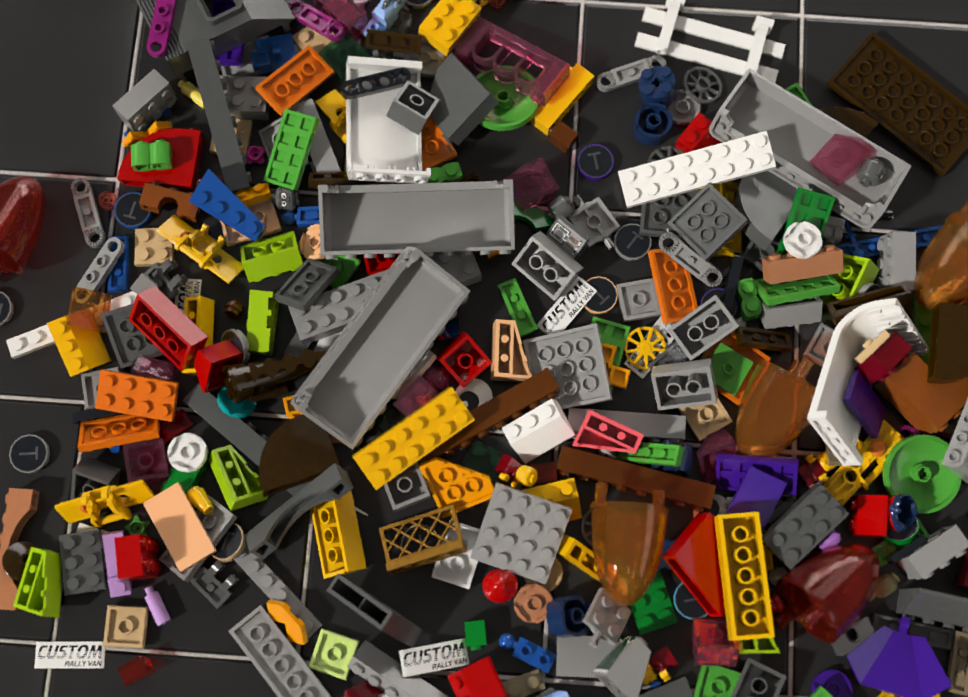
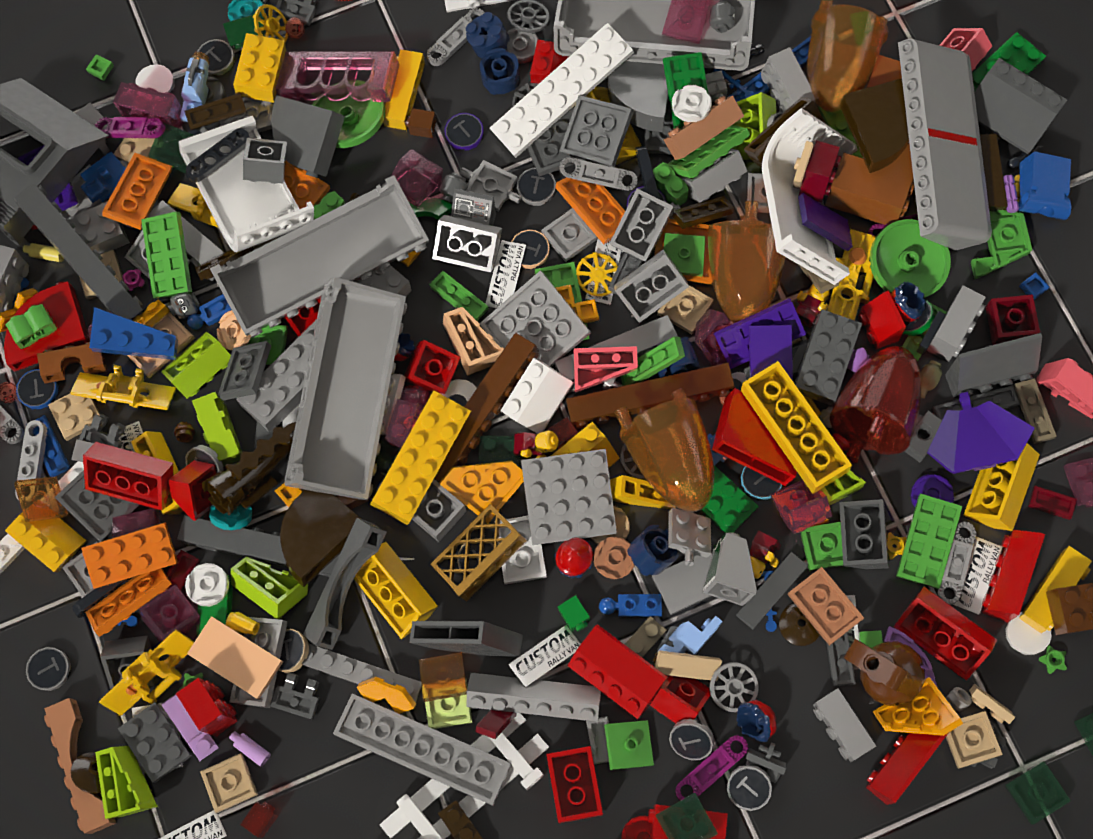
camera: 20 degrees left, 5 degrees down
(340, 630) = (443, 677): none -> clear orange tile

